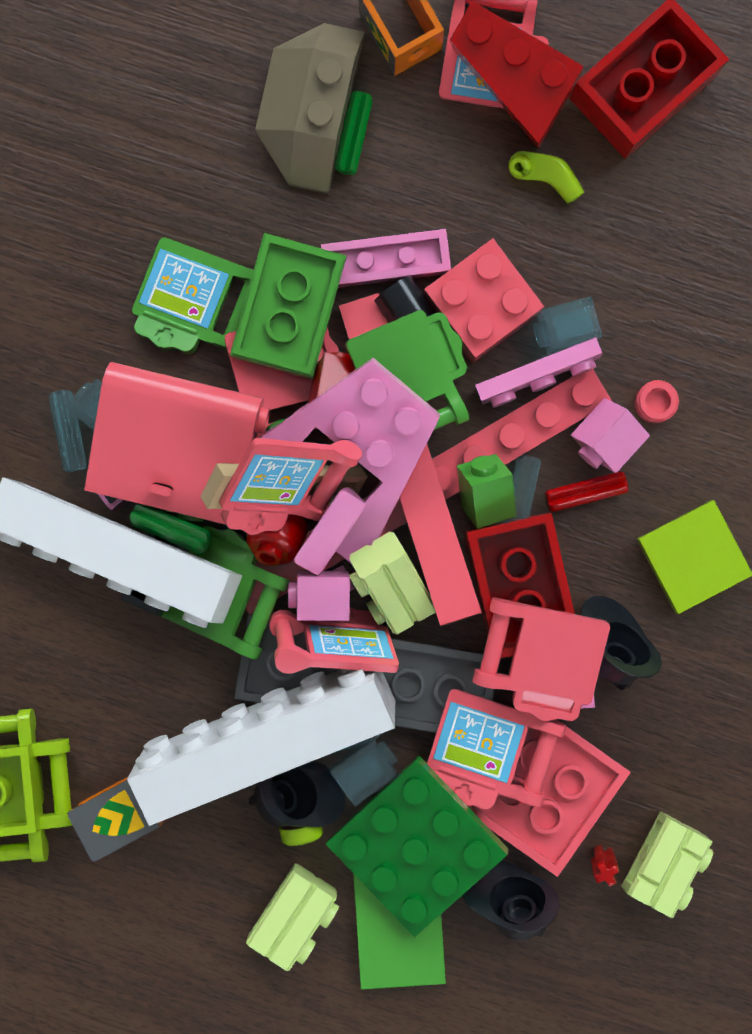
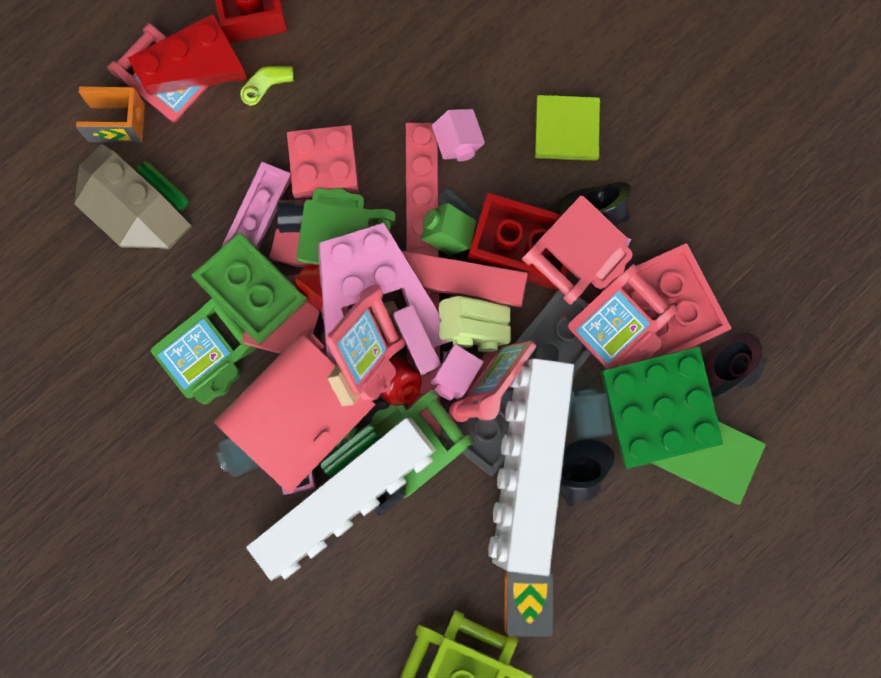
camera: 65 degrees left, 10 degrees down
(67, 431) = (241, 488): clear light blue axle -> none
(292, 918) = (666, 522): yellowish green brick -> none
(299, 835) = (610, 484): lime tile -> none
(540, 373) = (391, 155): bright pink plate -> none
(567, 325) = (372, 122): clear light blue brick -> none
(586, 491) = (485, 171): red axle -> none
(604, 865) = (740, 290): red axle -> none
(656, 401) = (453, 96): coral tile -> none
(668, 865) = (760, 253): yellowish green brick -> none

